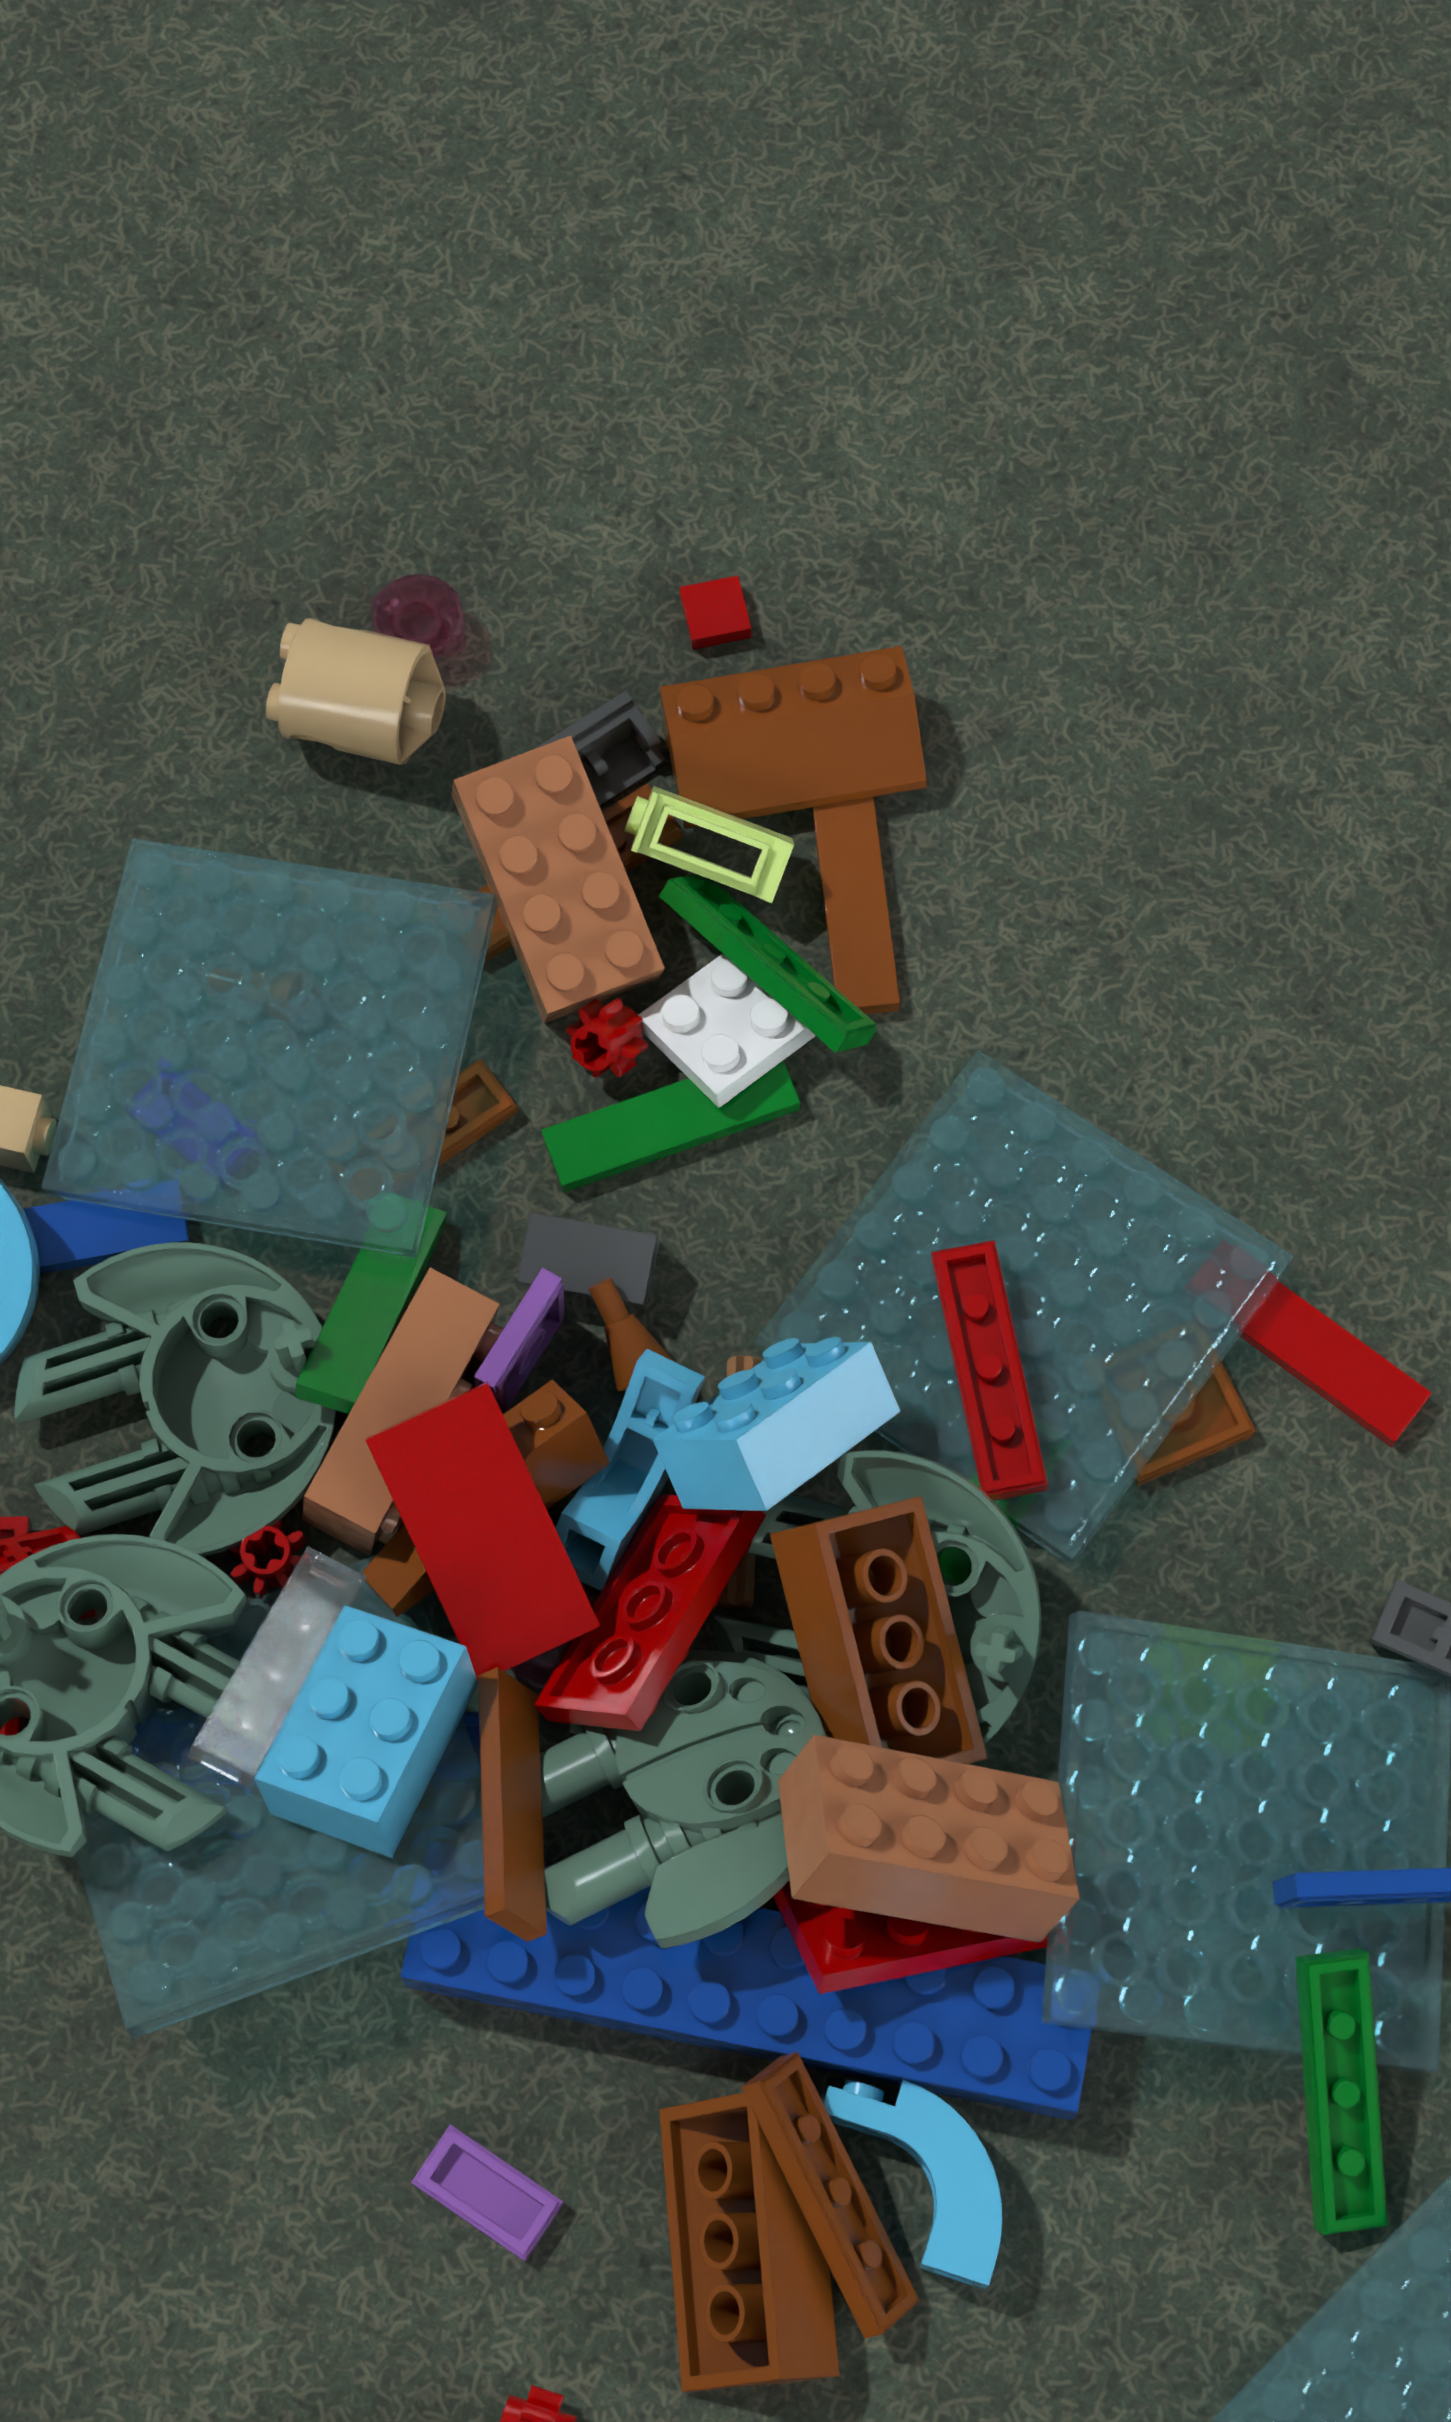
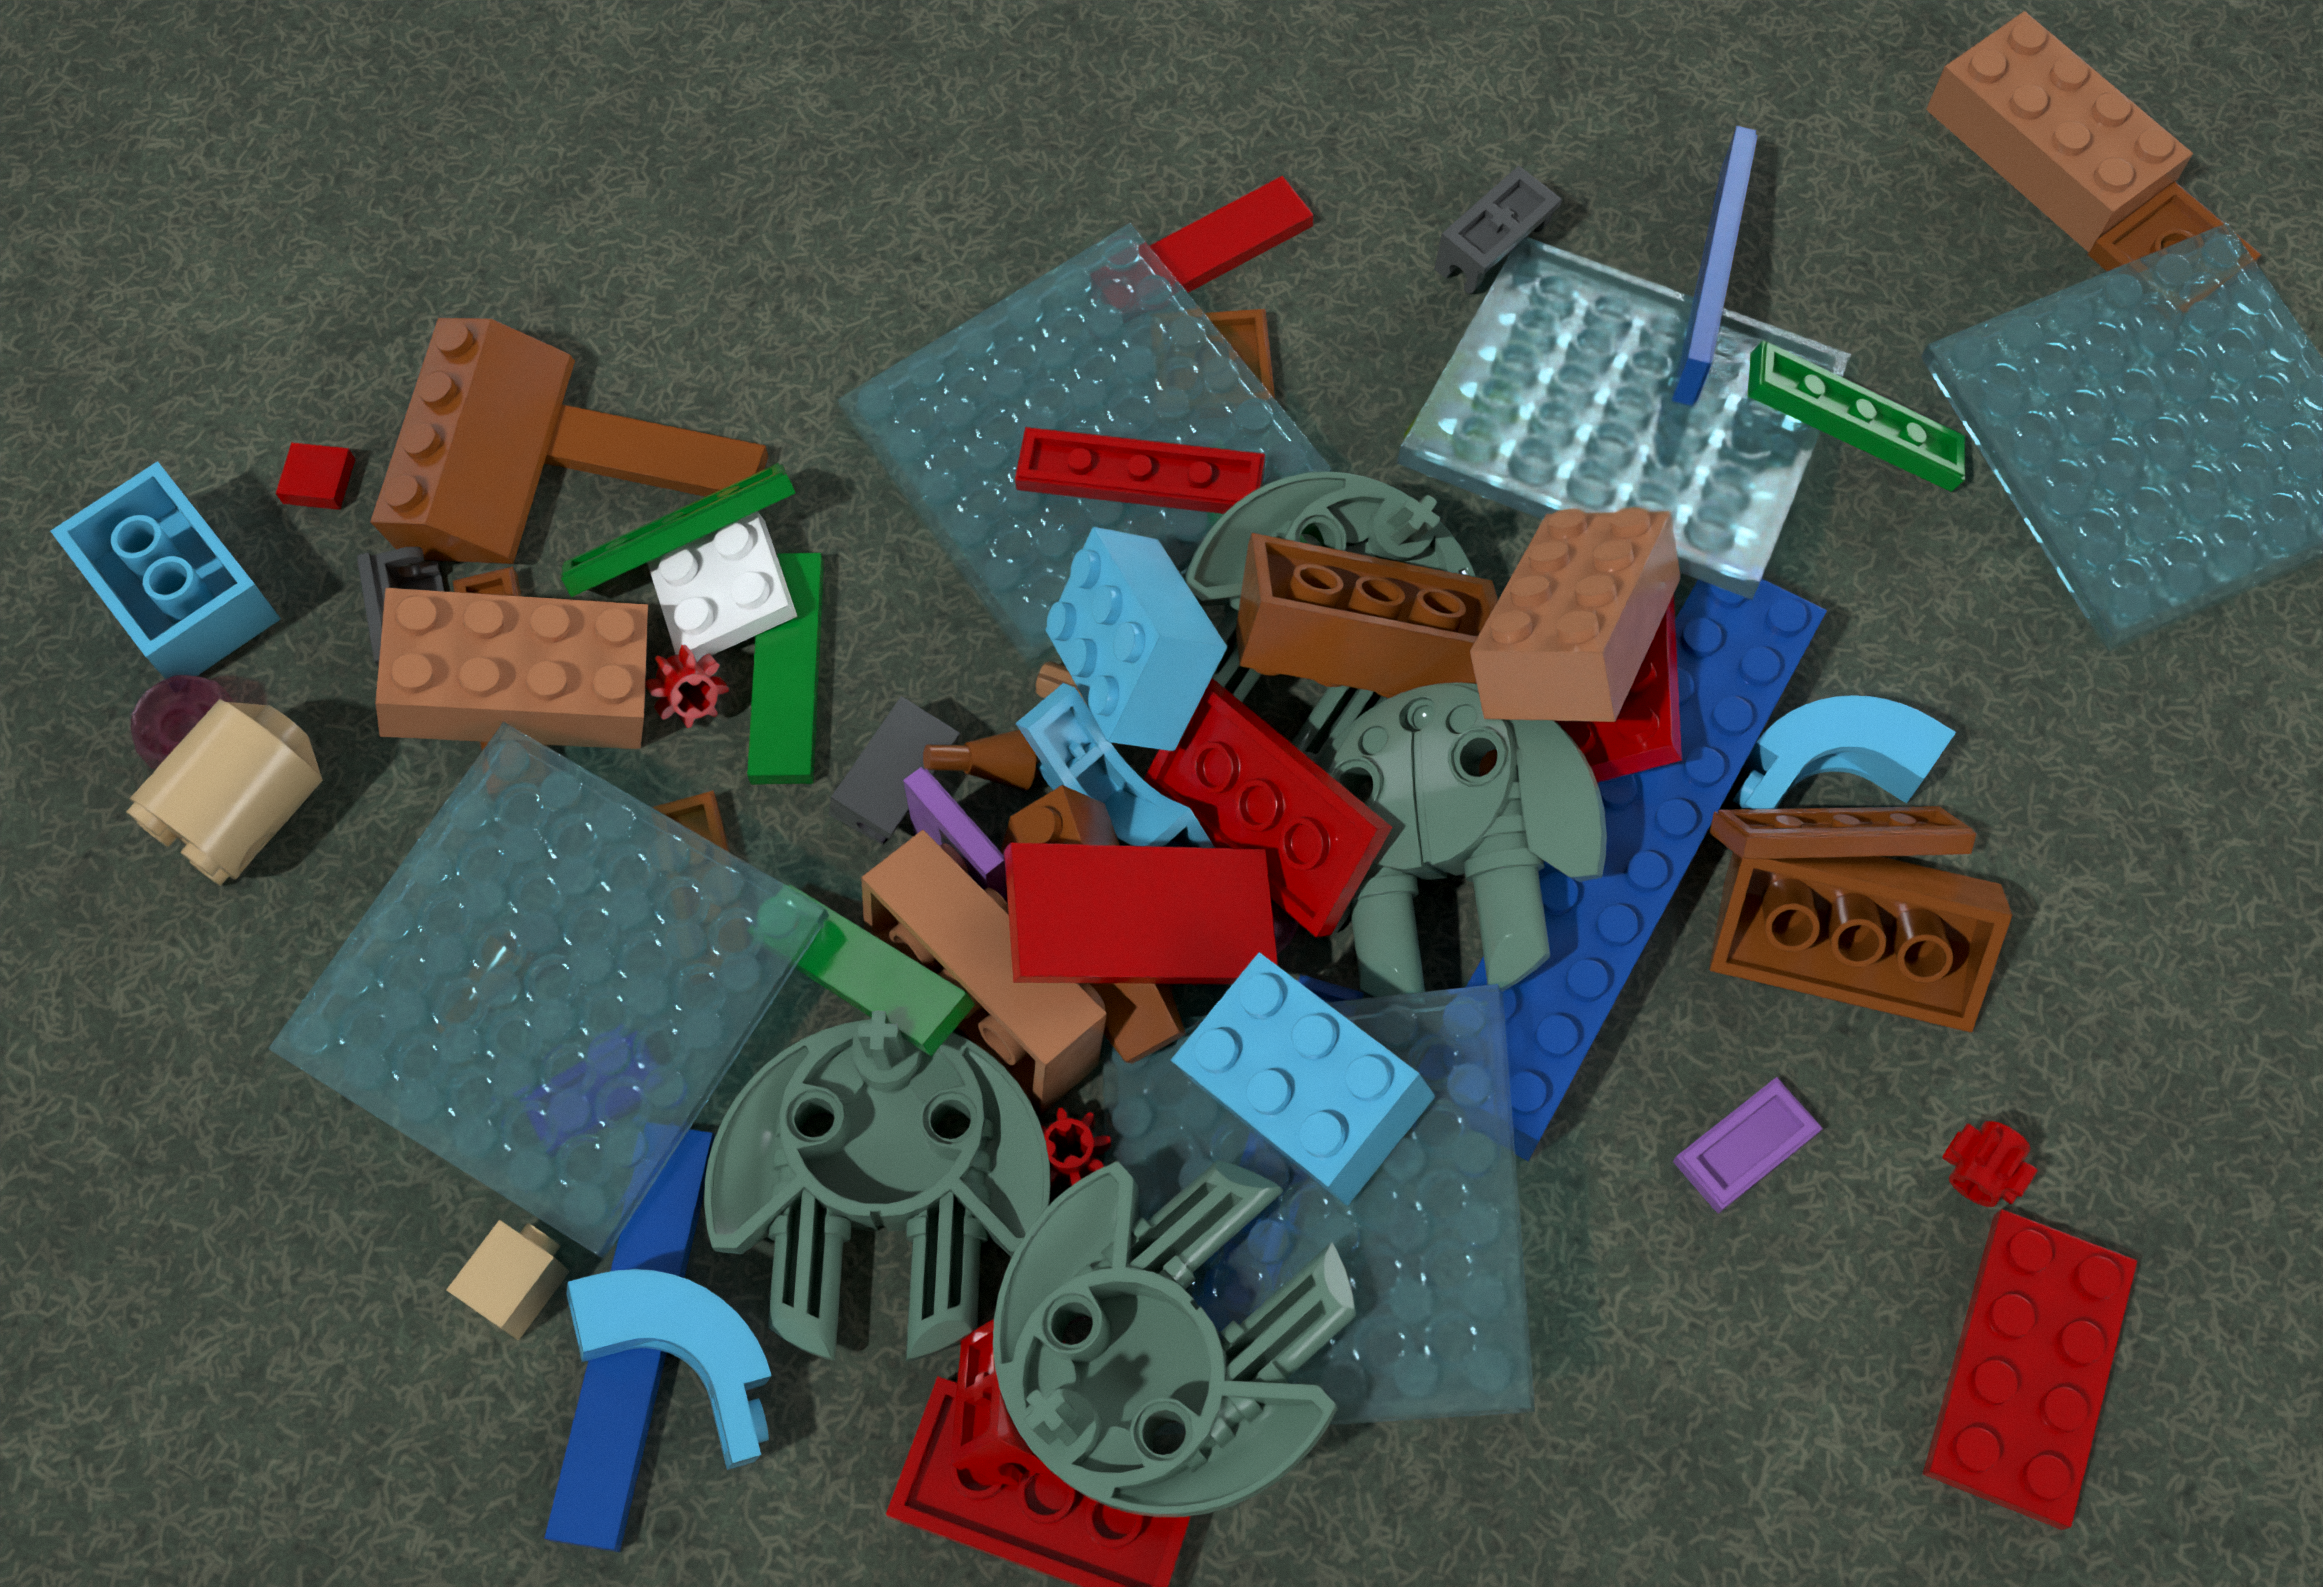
camera: 70 degrees left, 5 degrees down
(275, 1667) = (1208, 1150): clear tile -> none
(511, 1806) = (1418, 974): dark orange tile -> none
(550, 537) = (165, 574): none -> medium azure brick
(648, 820) = (498, 572): yellowish green window -> none

